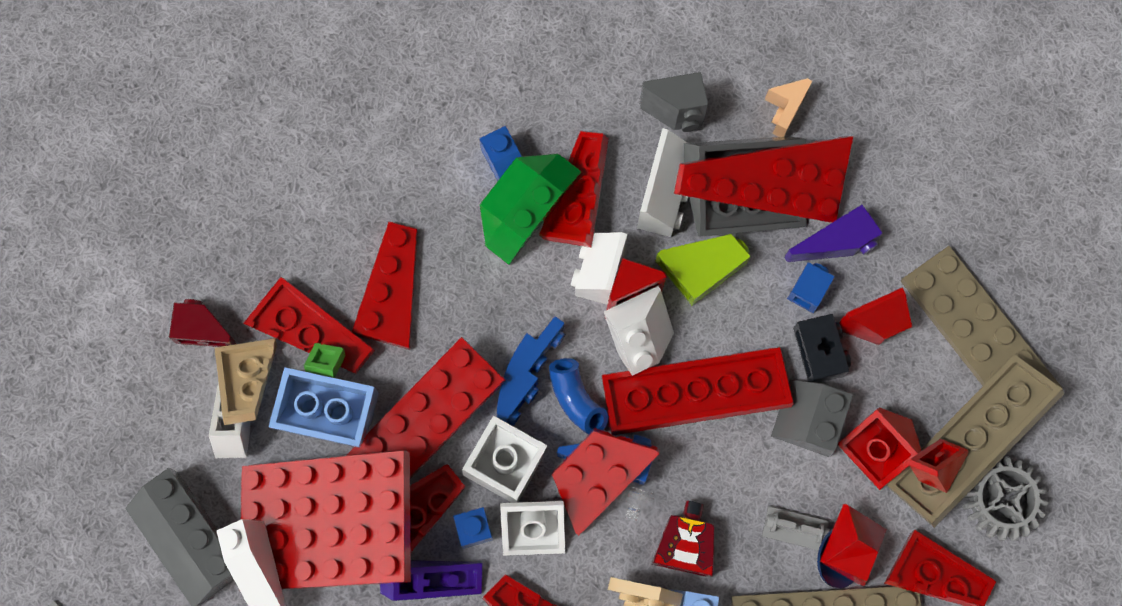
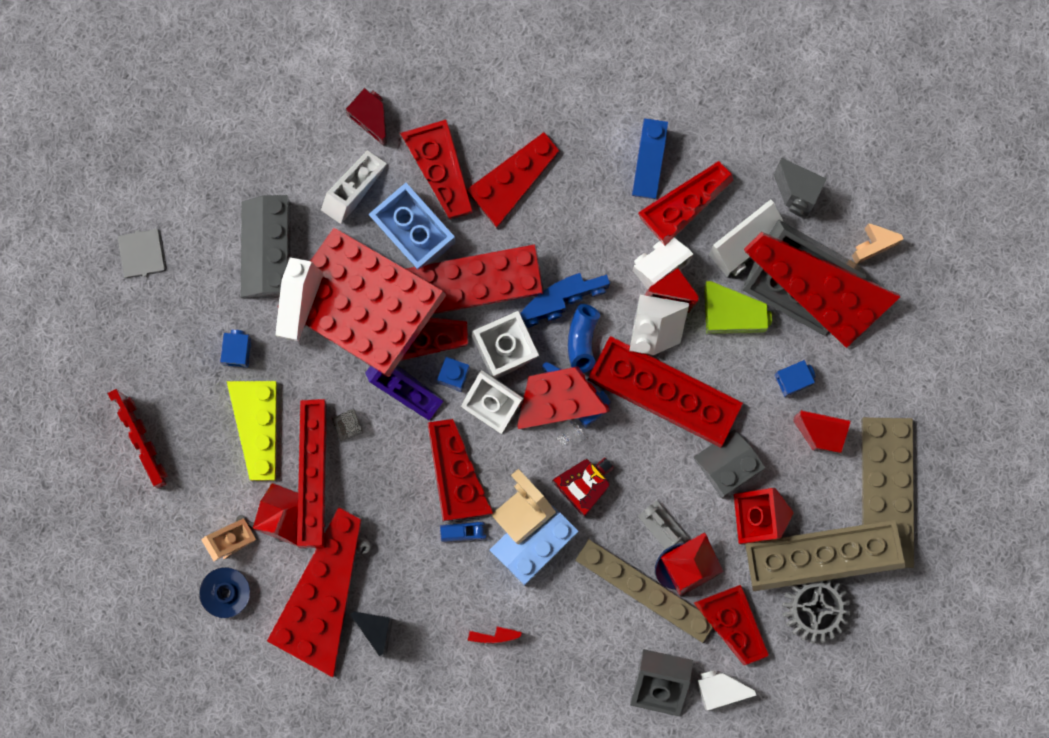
camera: 35 degrees right, 5 degrees up
(243, 378) = (374, 170): tan wing -> none
(324, 360) = (435, 196): bright green plate -> none
(523, 201) = (643, 182): green wedge -> none
(817, 364) = (770, 409): black brick -> none
(842, 238) = (842, 360): dark purple slope -> none
(938, 464) = (786, 552): red slope -> none

